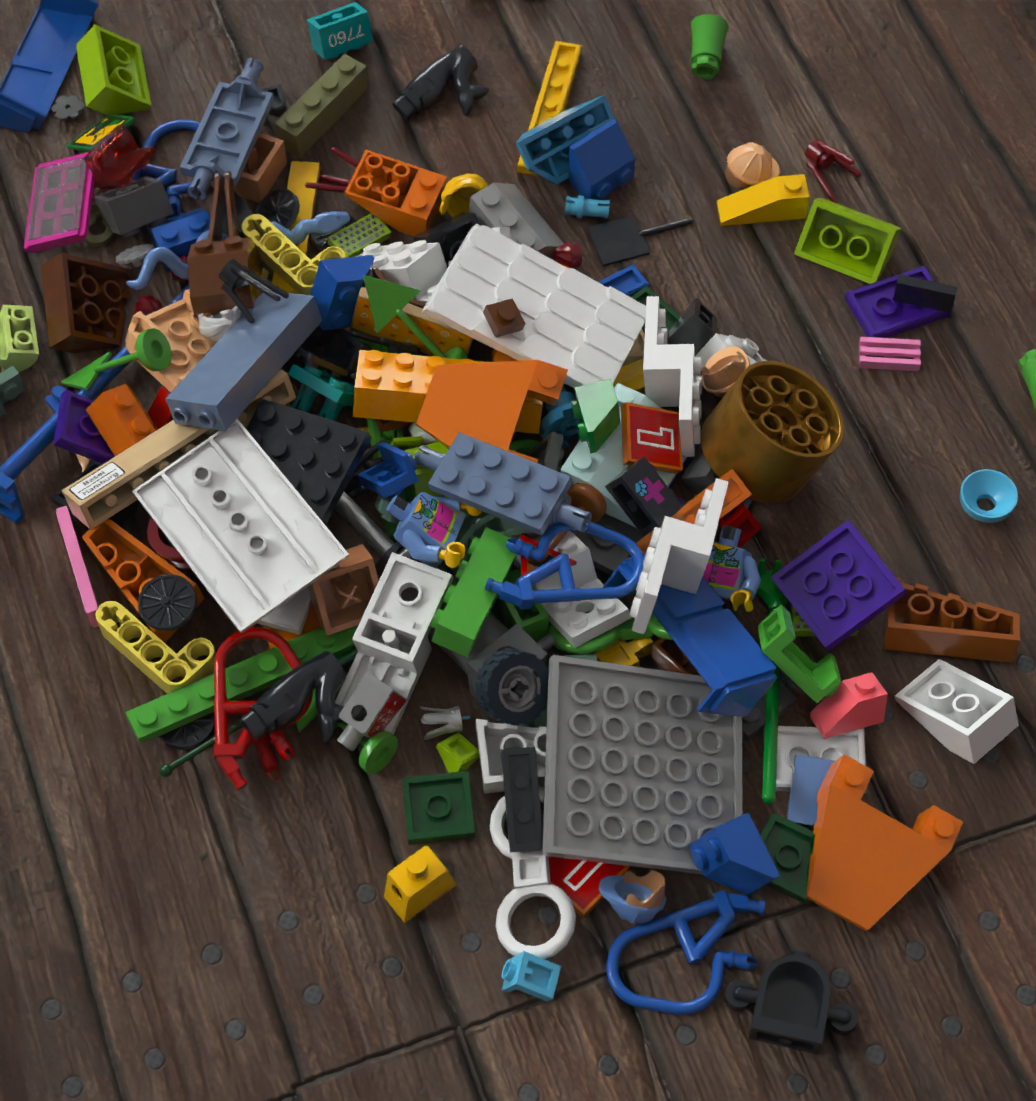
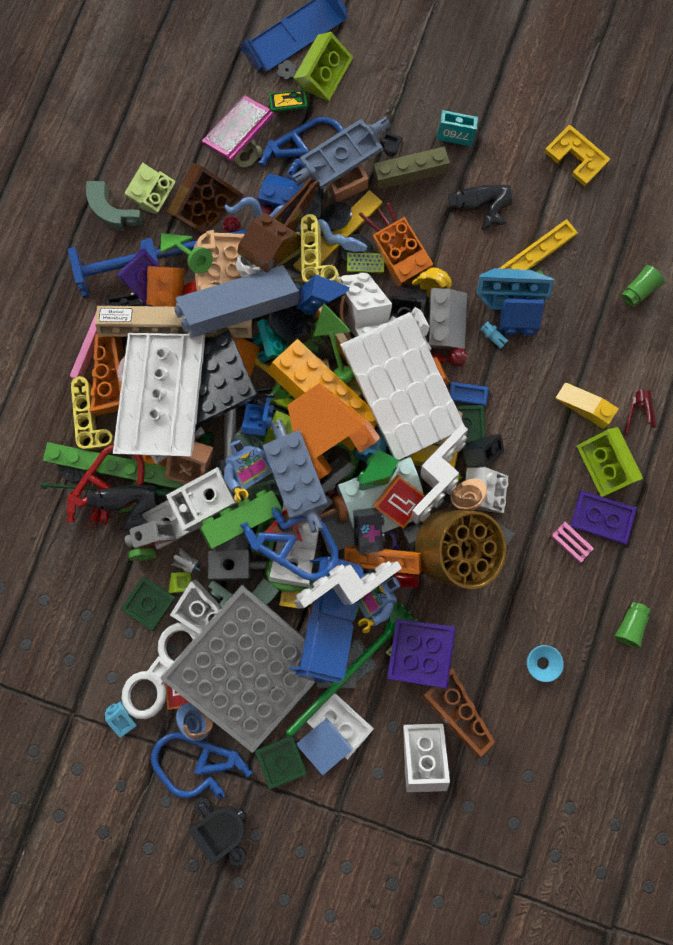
camera: 40 degrees right, 20 degrees up
(117, 158) = (280, 124): clear red bracket -> none
(134, 205) = (266, 159): dark grey slope -> none
(135, 255) = (249, 187): light grey piece -> none
(167, 602) = (103, 403): black wheel -> none
(238, 277) = (264, 254): black plant -> none
(419, 881) = (108, 634): yellow torso -> none
(502, 673) = (215, 583): black wheel -> none
(504, 317) = (377, 381): reddish brown plate -> none
(522, 799) = (178, 637): black plate -> none
(623, 240) = (497, 365): black piece -> none
(735, 856) = (246, 746): blue slope -> none
(750, 165) = (600, 377): light nougat piece -> none
(776, 639) = (365, 675): bright green panel -> none
(853, 706) = (373, 715): coral slope -> none
(865, 857) = (309, 797): orange wedge -> none
(925, 293) = (618, 527): black tile -> none

